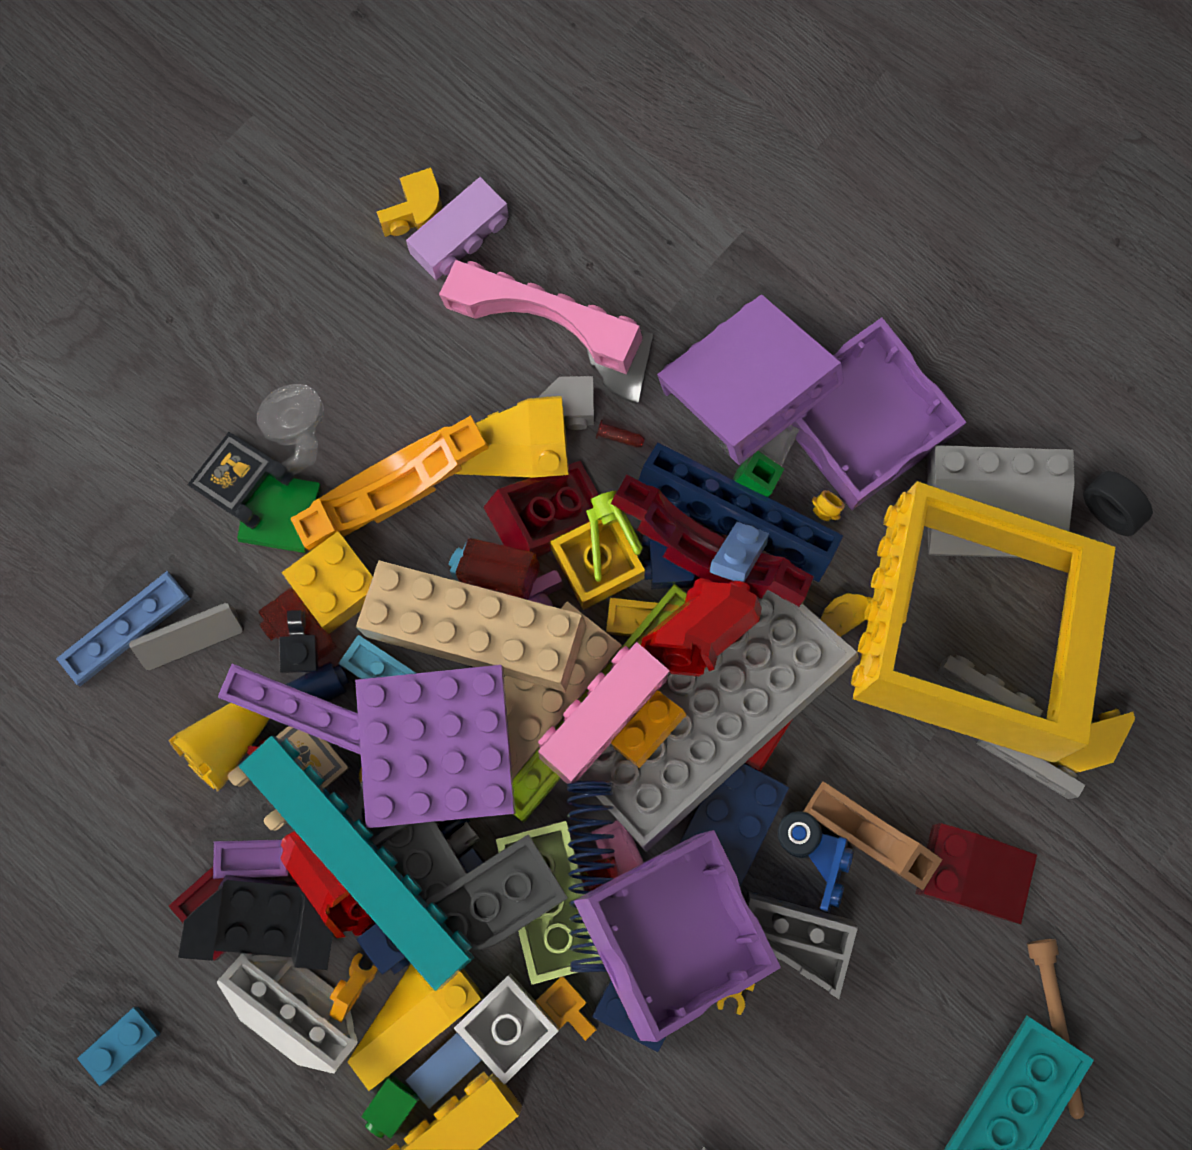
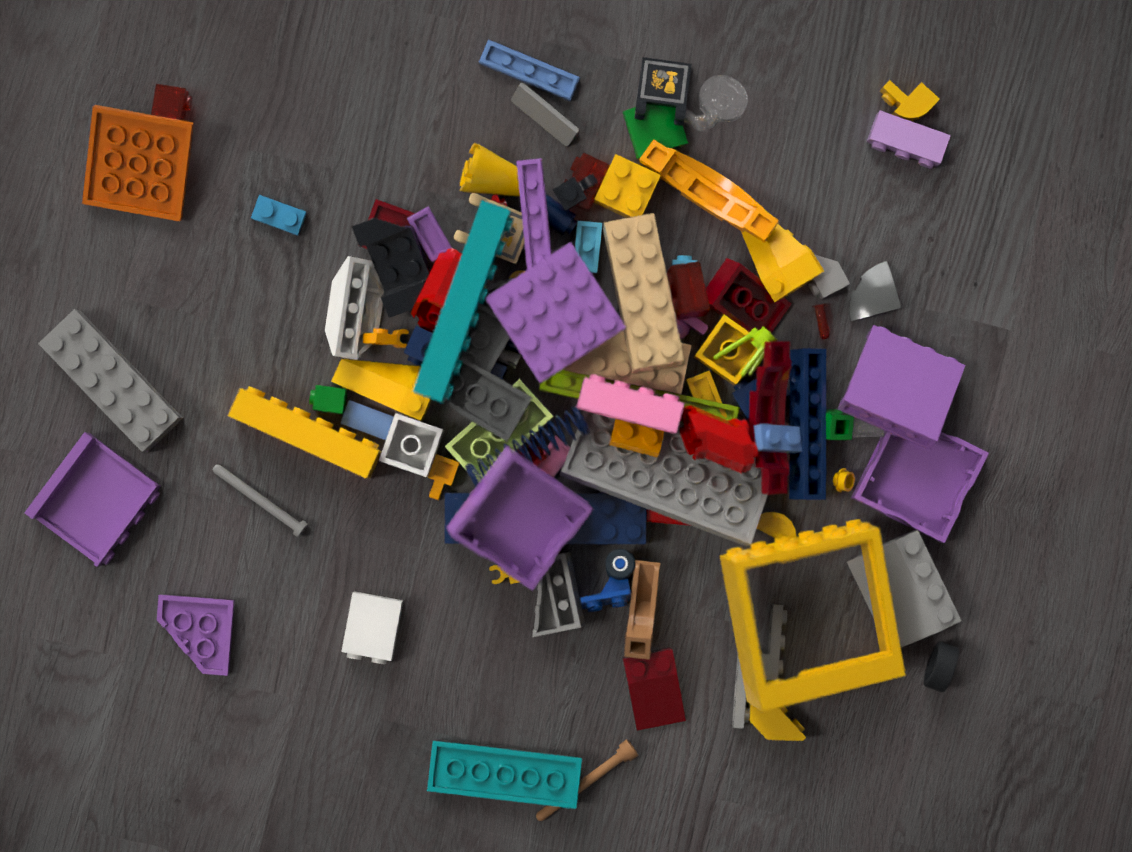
camera: 60 degrees right, 10 degrees up
(481, 293) = (869, 177): bright pink arch -> none

